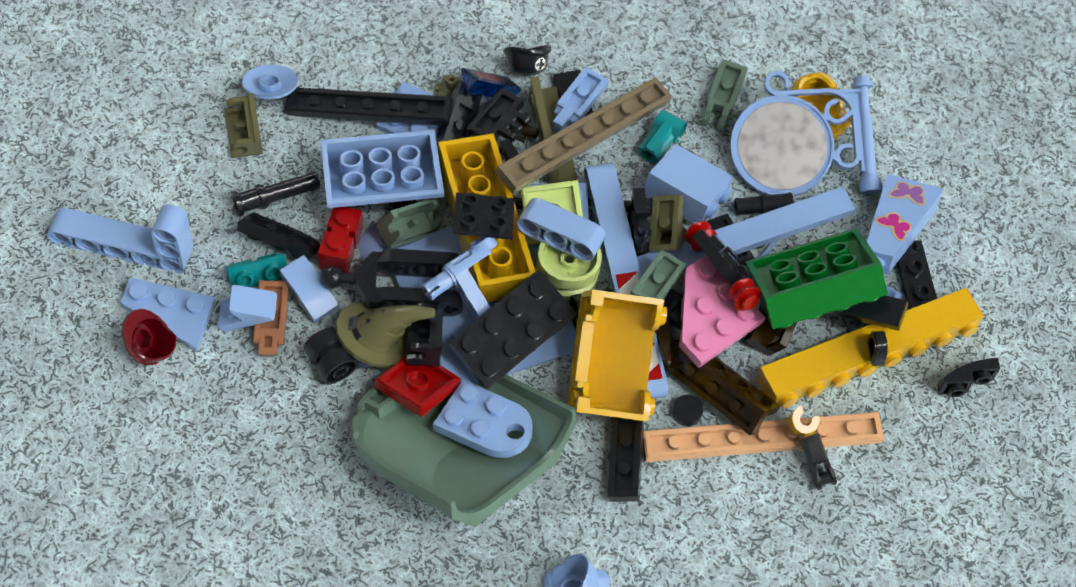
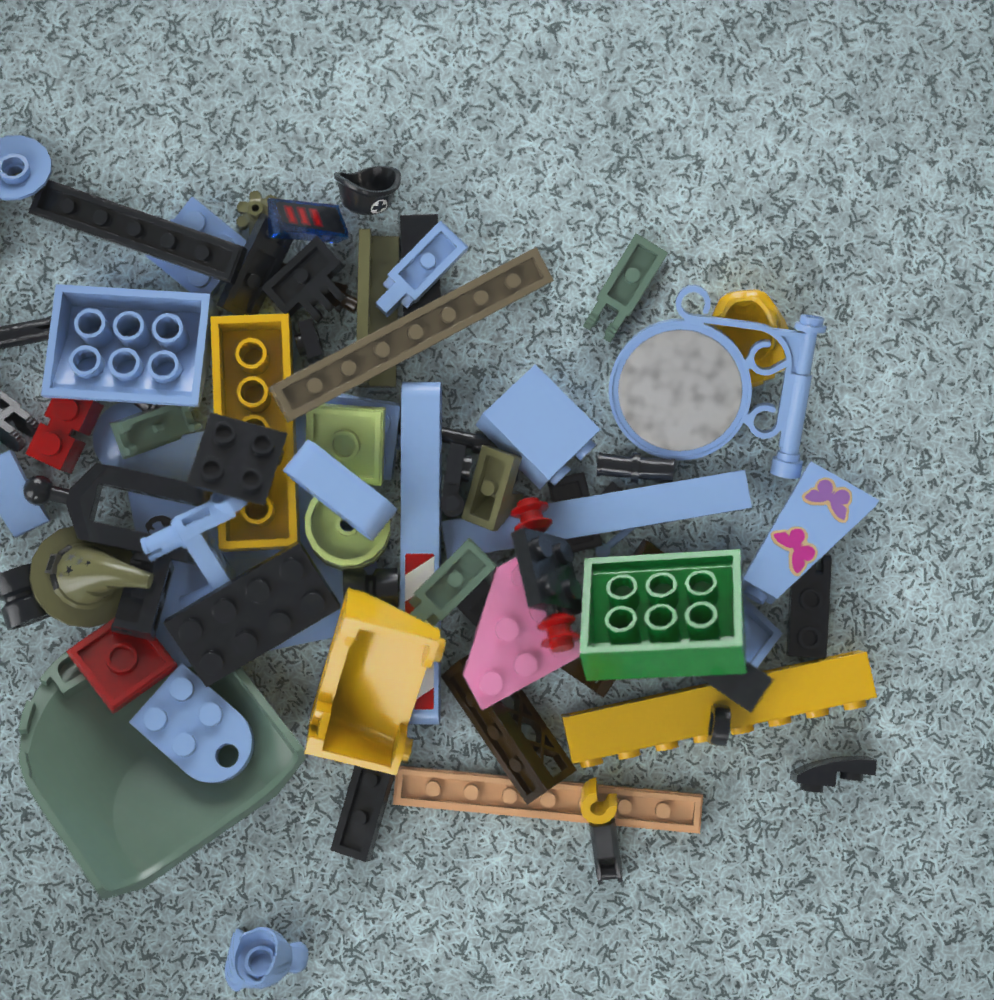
camera: 15 degrees right, 25 degrees up
(663, 134) = (529, 335): teal piece -> none
(664, 340) = (455, 636): dark brown piece -> none
(687, 410) = (461, 746): black tile -> none

